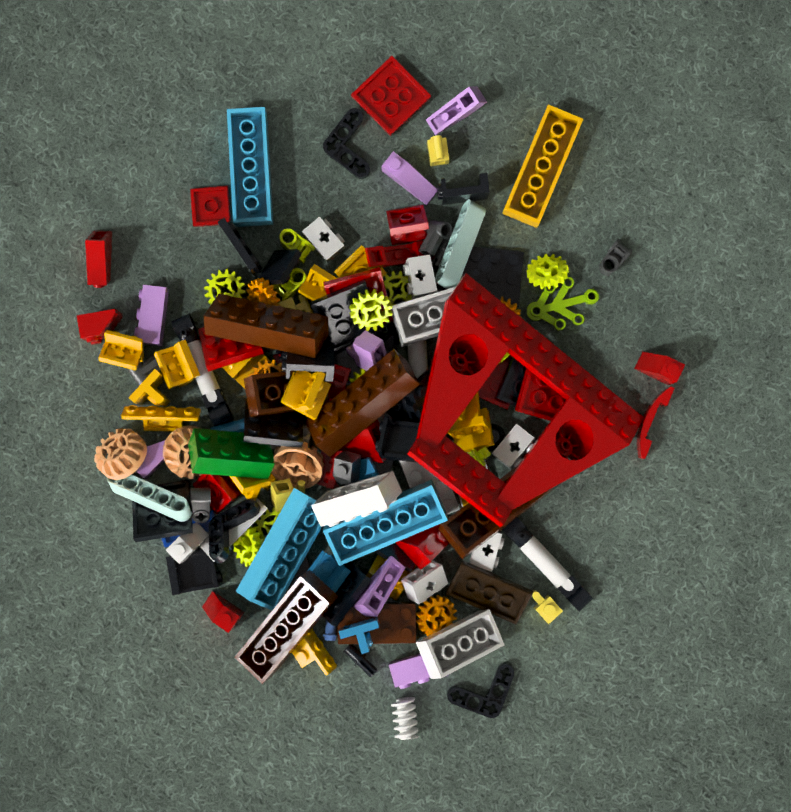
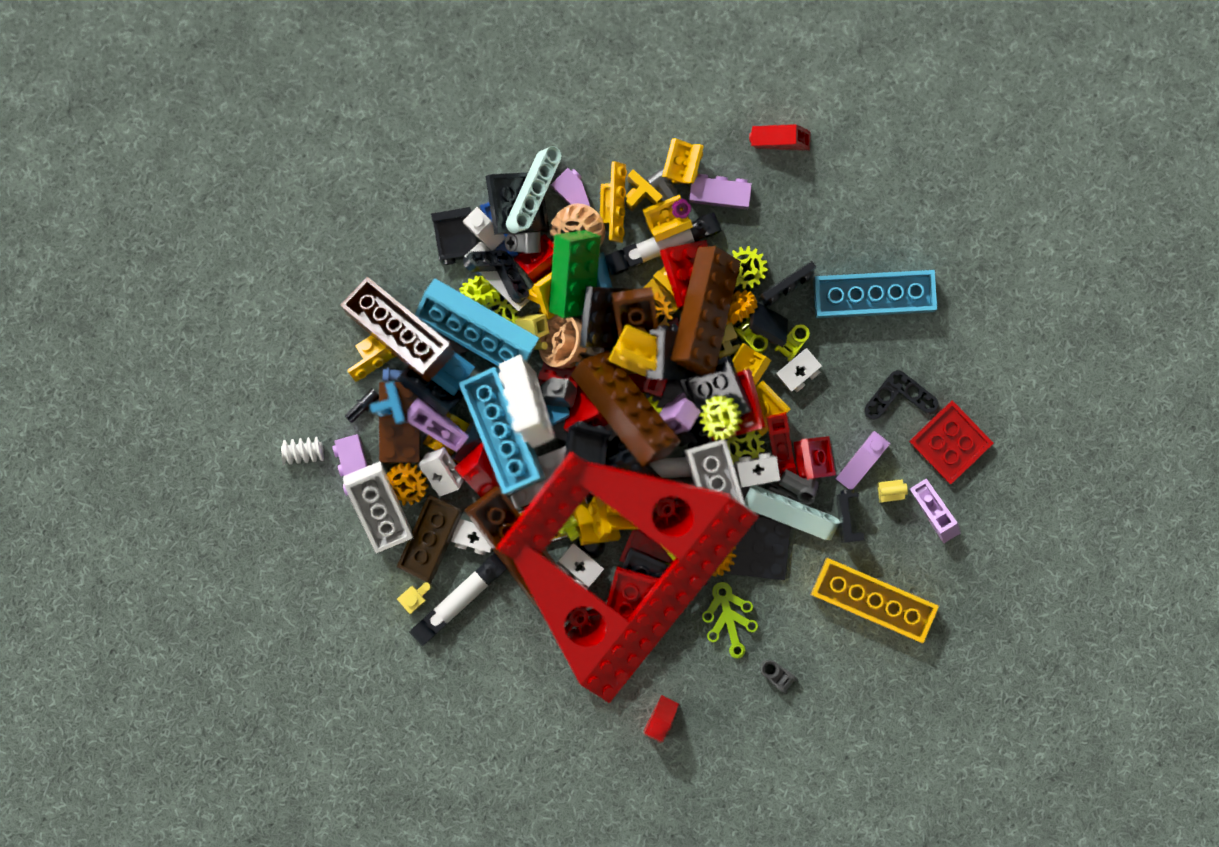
camera: 90 degrees right, 0 degrees up
(93, 325) = (708, 133): red slope -> none
(125, 454) = (576, 166): light nougat gear -> none
(172, 350) = (676, 208): none -> magenta plate
(210, 205) = (835, 253): red tile -> none
(222, 612) = (413, 264): red slope -> none
(491, 697) = (321, 540): black beam -> none
(547, 271) = (763, 603): neon yellow gear -> none
(644, 444) = (628, 722): red slope -> none

